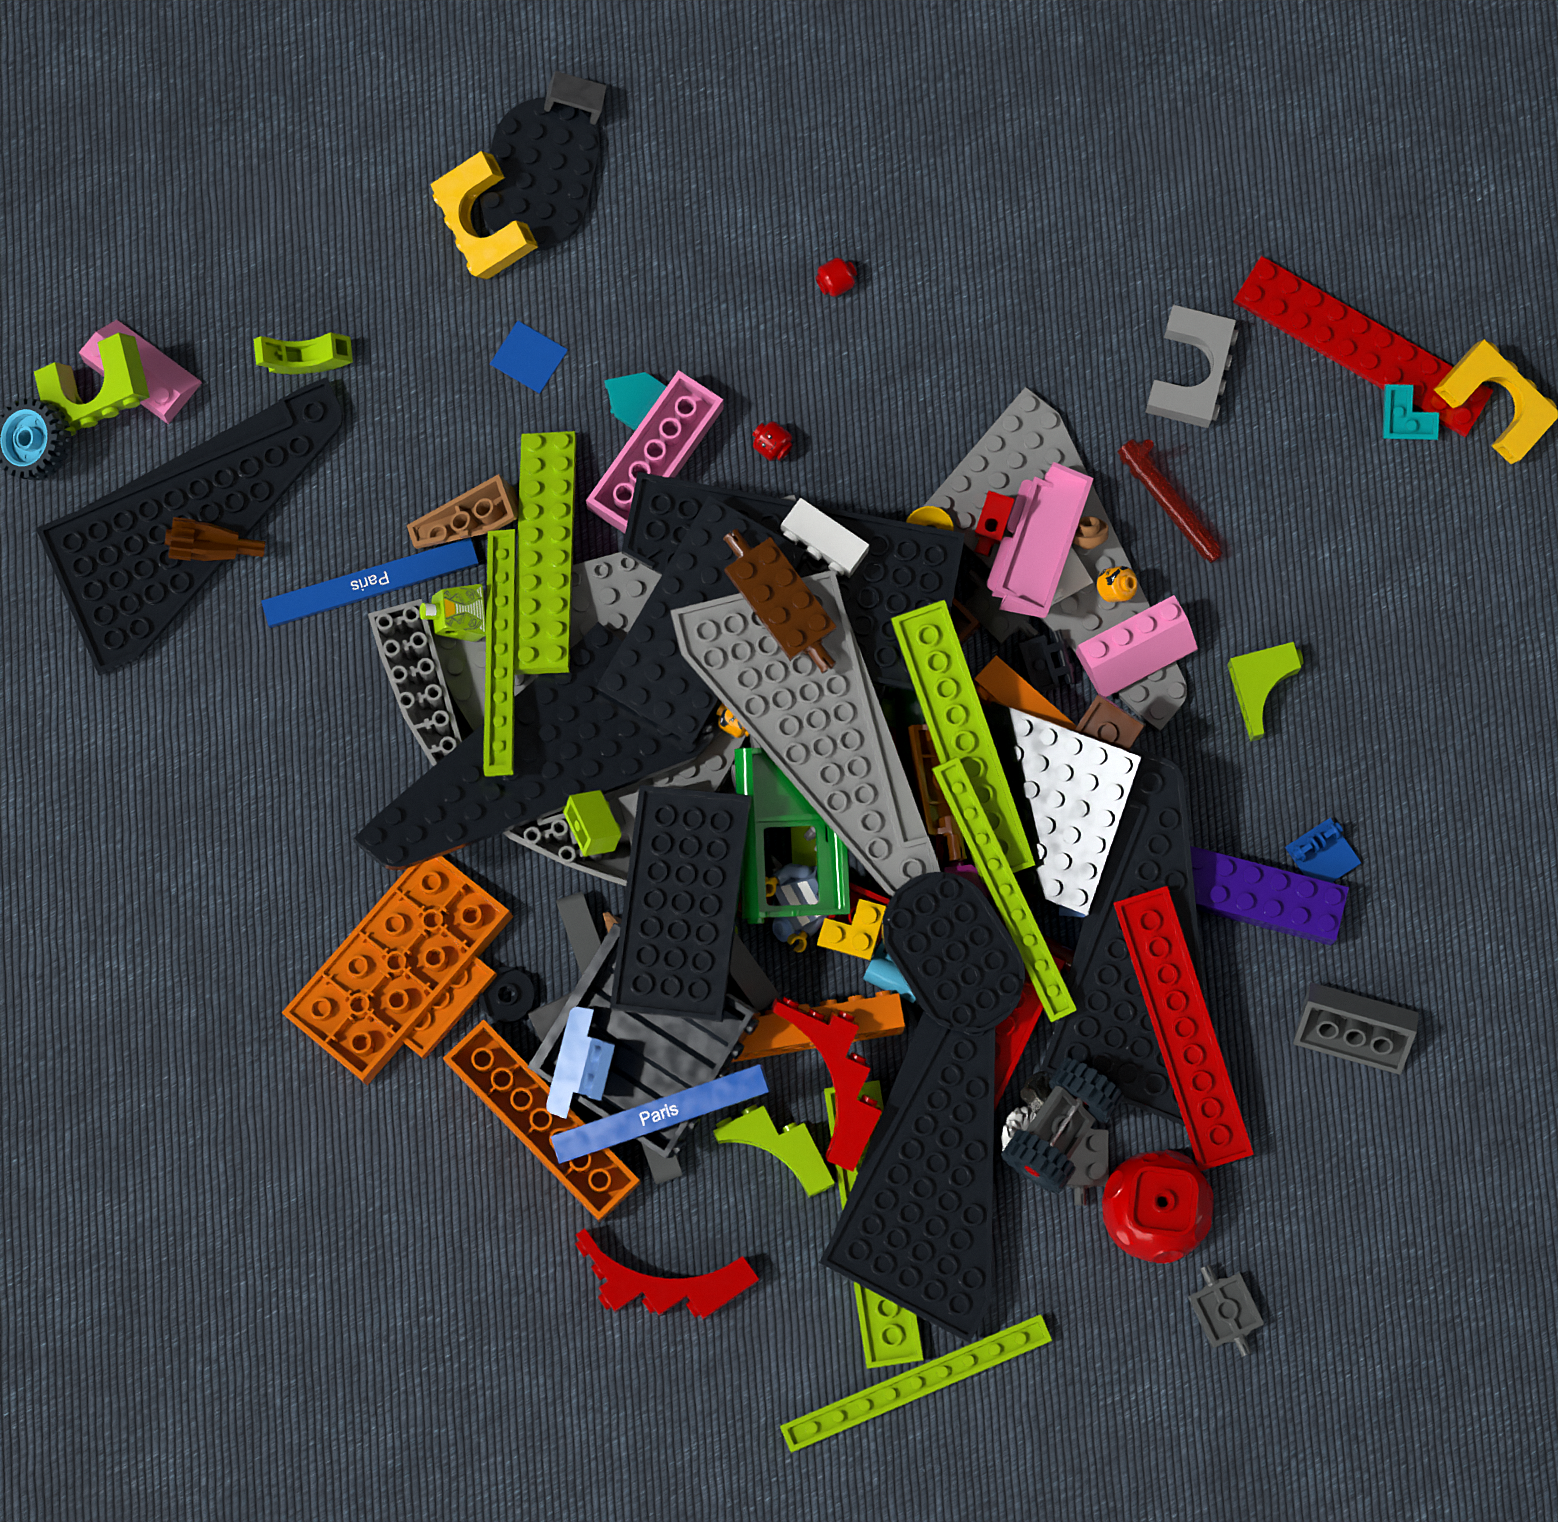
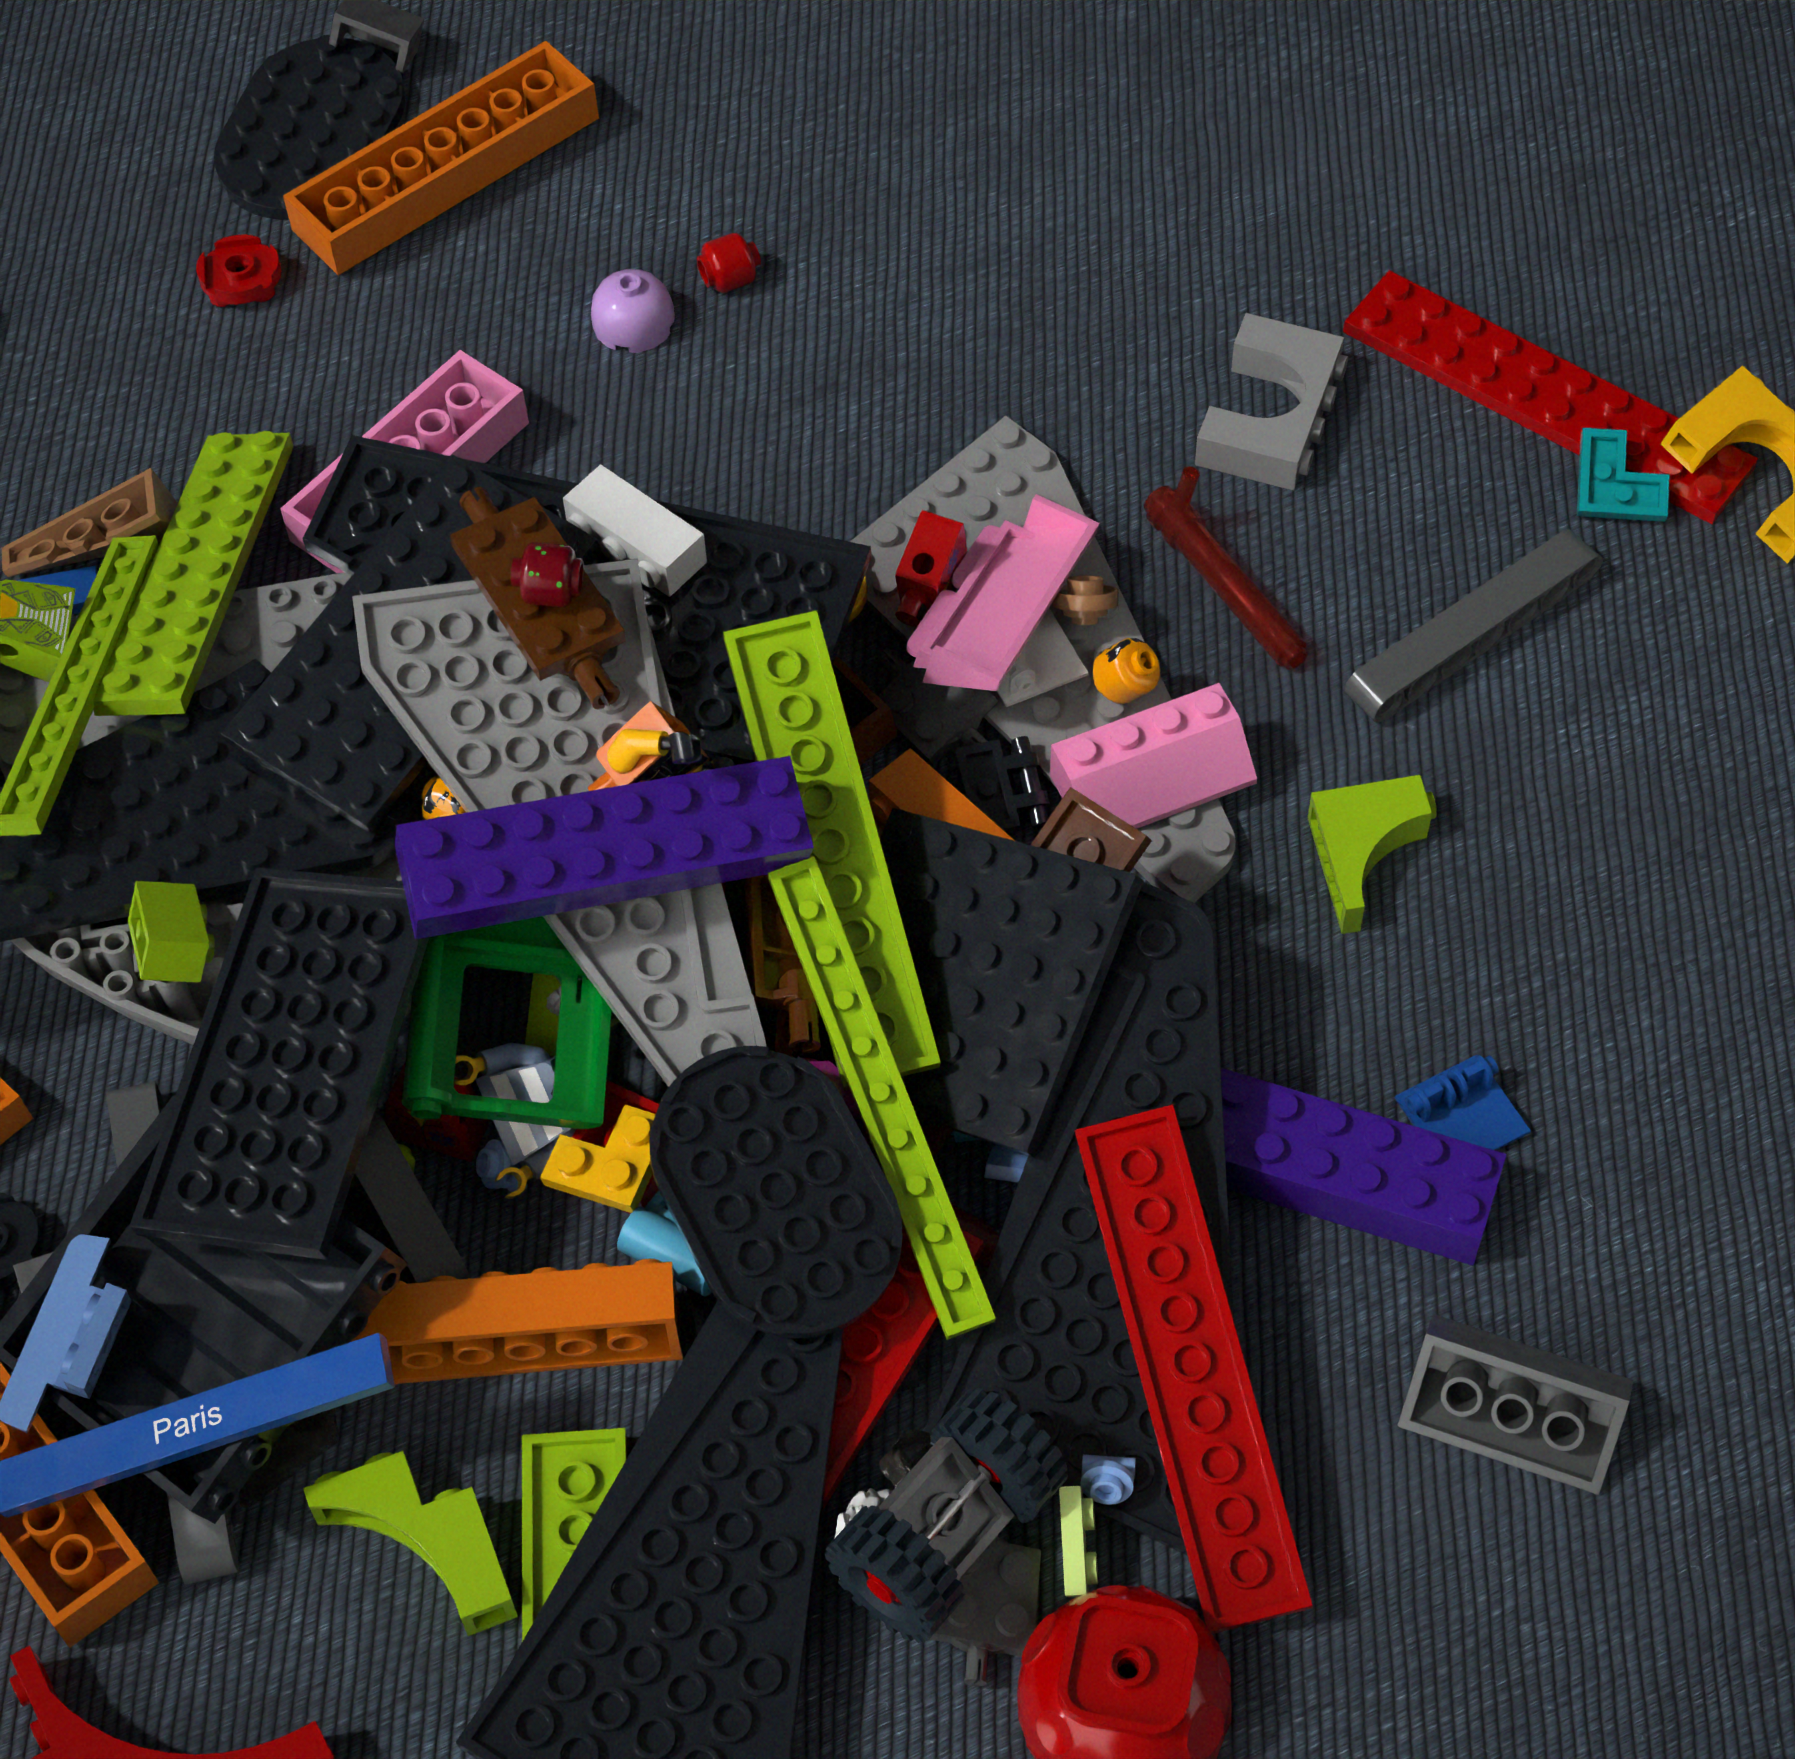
camera: 10 degrees right, 20 degrees down
(456, 195) = (178, 137): yellow arch -> none
(503, 293) = (225, 285): none -> red plate
(528, 357) = (244, 346): blue sticker -> none
(633, 397) = (382, 389): teal slope -> none
(637, 203) = (441, 157): none -> orange brick
(772, 441) = (590, 450): red head -> none
(777, 318) = (632, 311): none -> lavender cylinder
(791, 600) = (548, 574): none -> dark red head
(842, 768) = (601, 846): none -> dark purple brick
(854, 1114) = (559, 1472): red arch -> none
(866, 706) = (650, 749): none -> torso
(1130, 1139) = (1078, 1564): none -> yellowish green plate
(1142, 1091) = (1108, 1478): none -> light blue plate
(1322, 526) = (1472, 625): none -> dark grey beam

